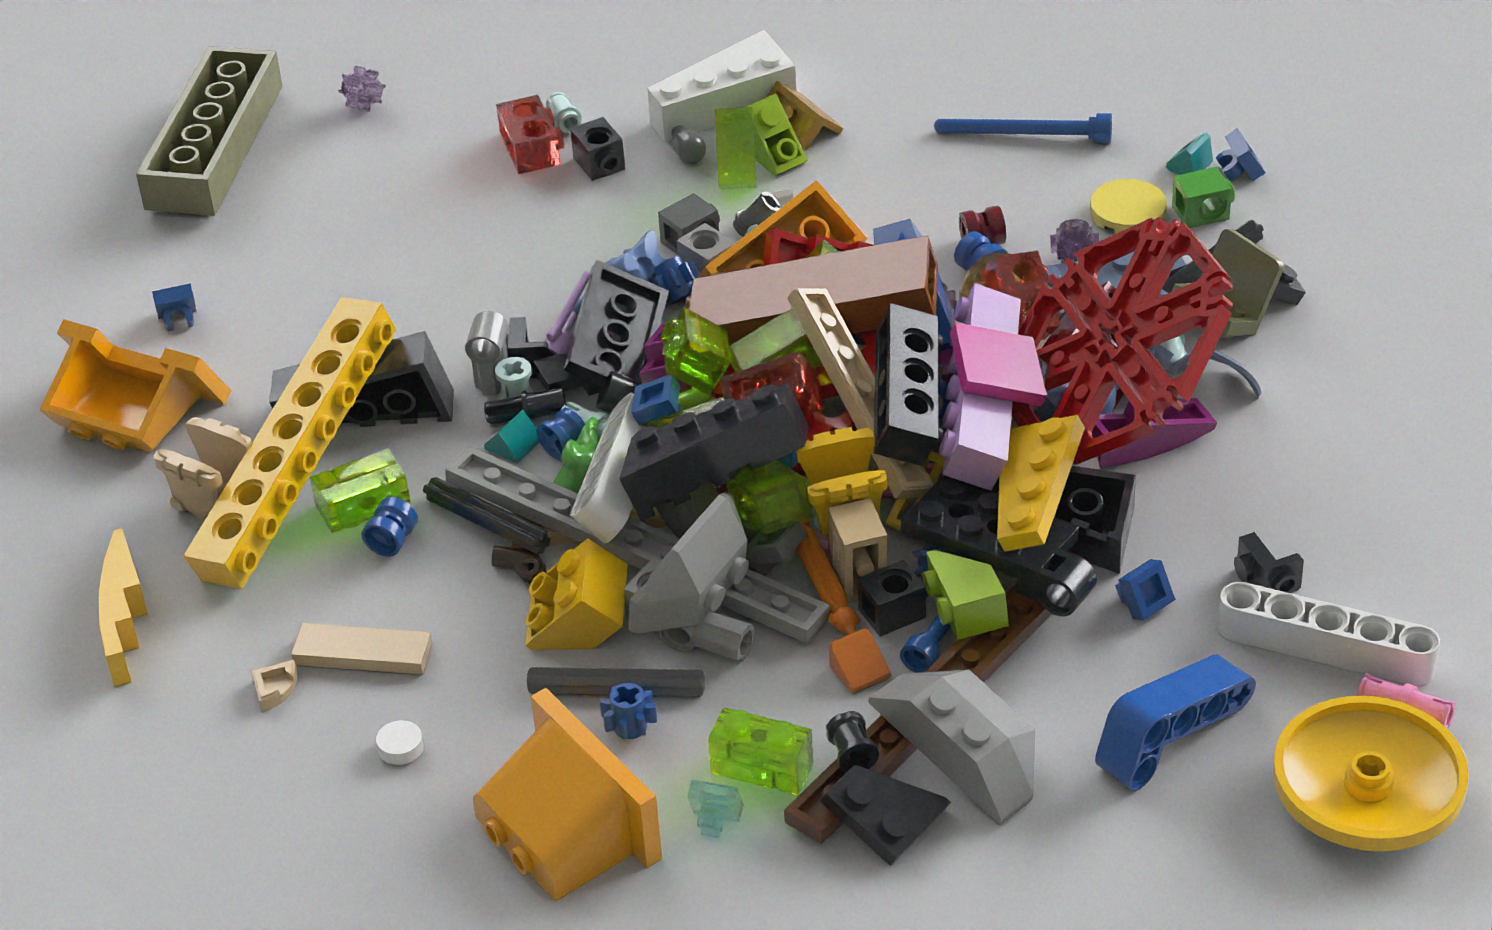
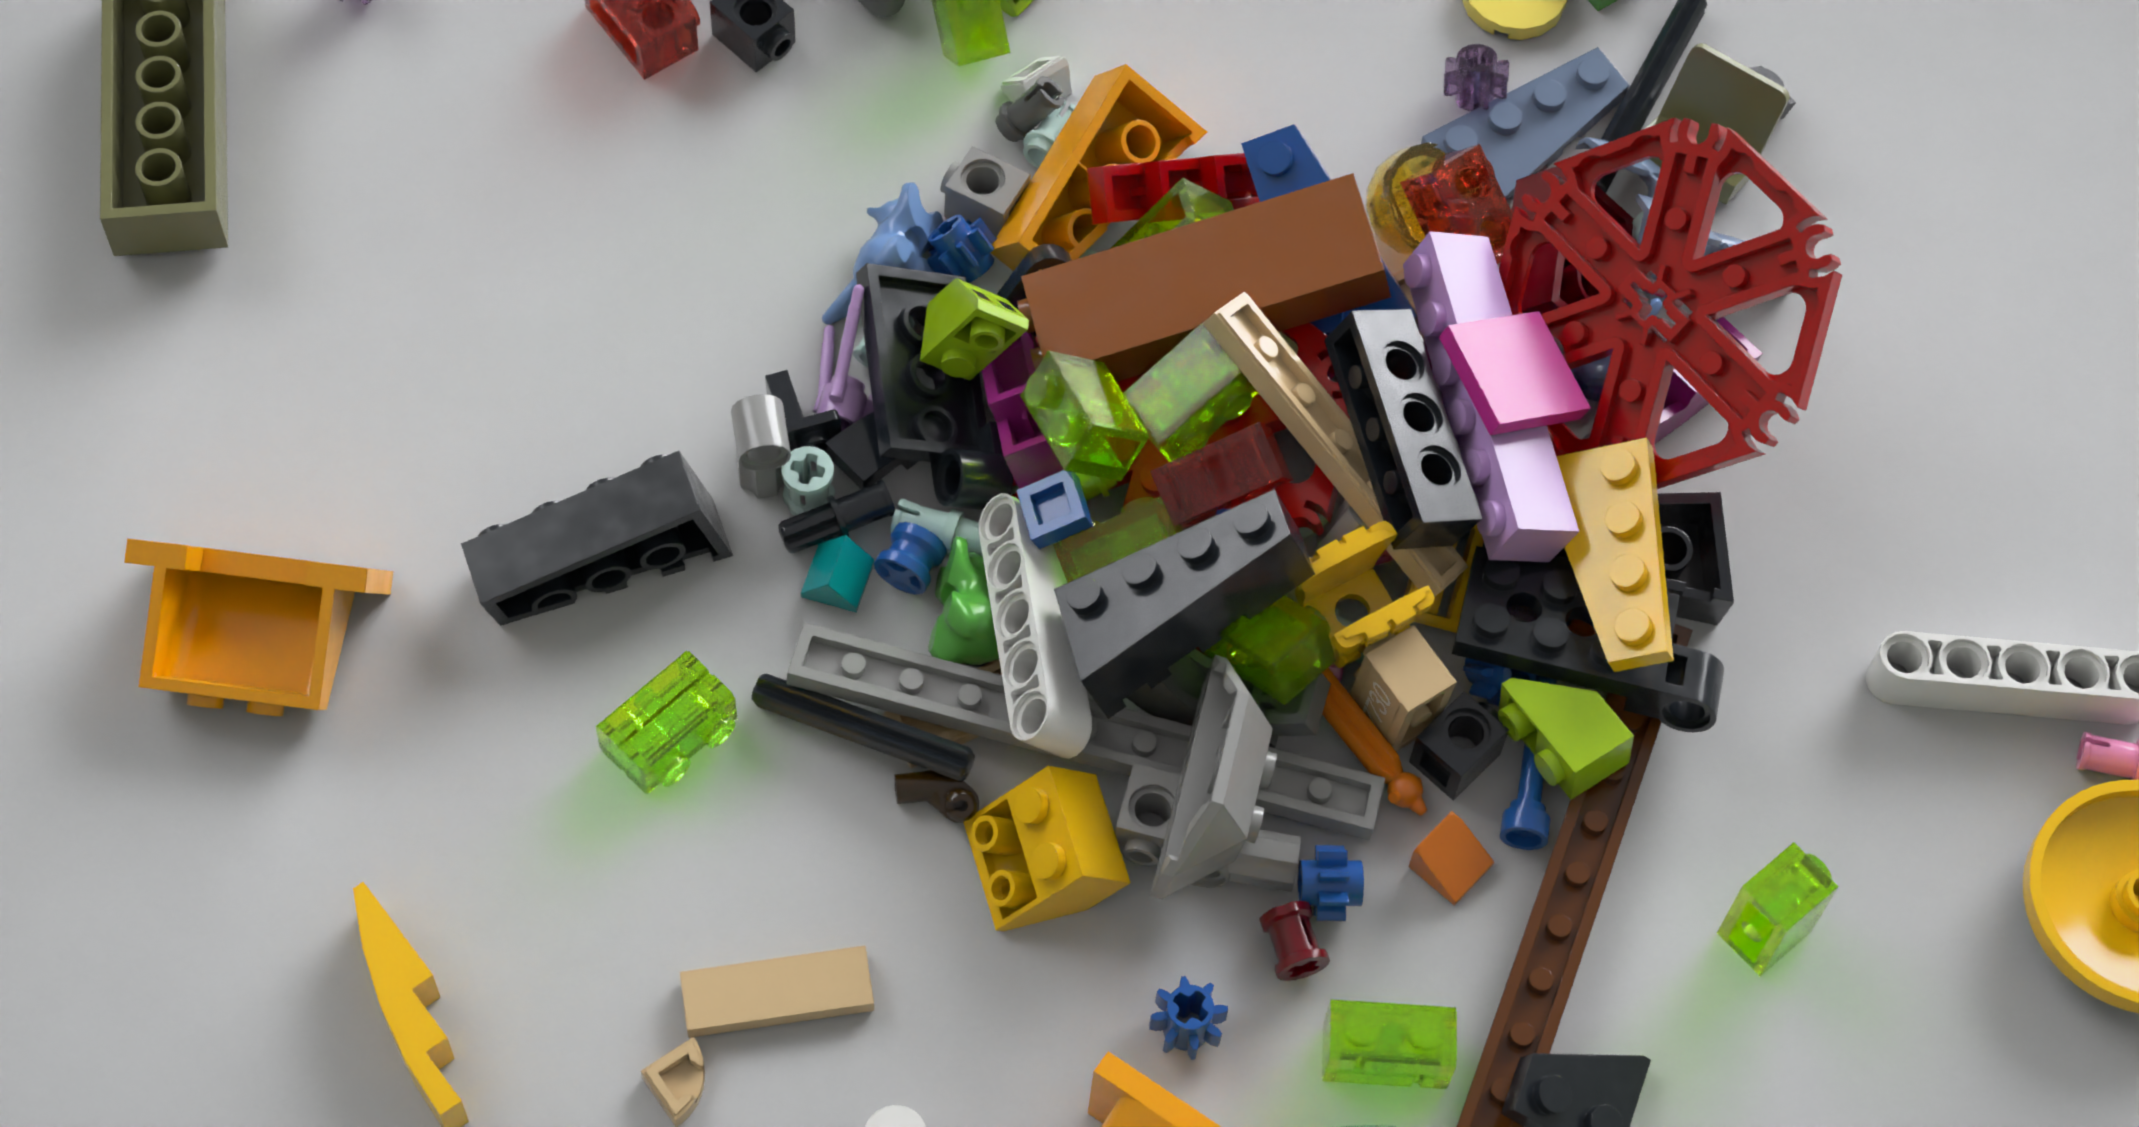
camera: 25 degrees left, 20 degrees up
(174, 302) = (247, 434): blue tile -> none
(199, 483) = (450, 726): tan piece -> none
(290, 443) = (573, 471): yellow brick -> none
(389, 527) = (735, 777): blue wheel -> none
(601, 680) = (1144, 966): dark grey axle -> none
(646, 306) = (968, 329): none -> lime slope
(684, 217) = (936, 139): dark grey brick -> none
(723, 683) = (1294, 941): none -> dark red bush
(762, 654) = (1330, 882): none -> blue gear
(849, 736) = (1512, 1014): black bush -> none
(966, 735) = (1637, 955): light grey wedge -> none
(972, 248) = (1360, 125): blue wheel -> none
(988, 223) = (1342, 71): dark red wheel -> none
(1073, 719) = (1778, 908): none -> clear neon green brick
(1145, 589) = (1771, 658): blue tile -> none
(1166, 711) = (1882, 865): blue beam -> none
(1259, 567) = (1902, 592): black bracket -> none

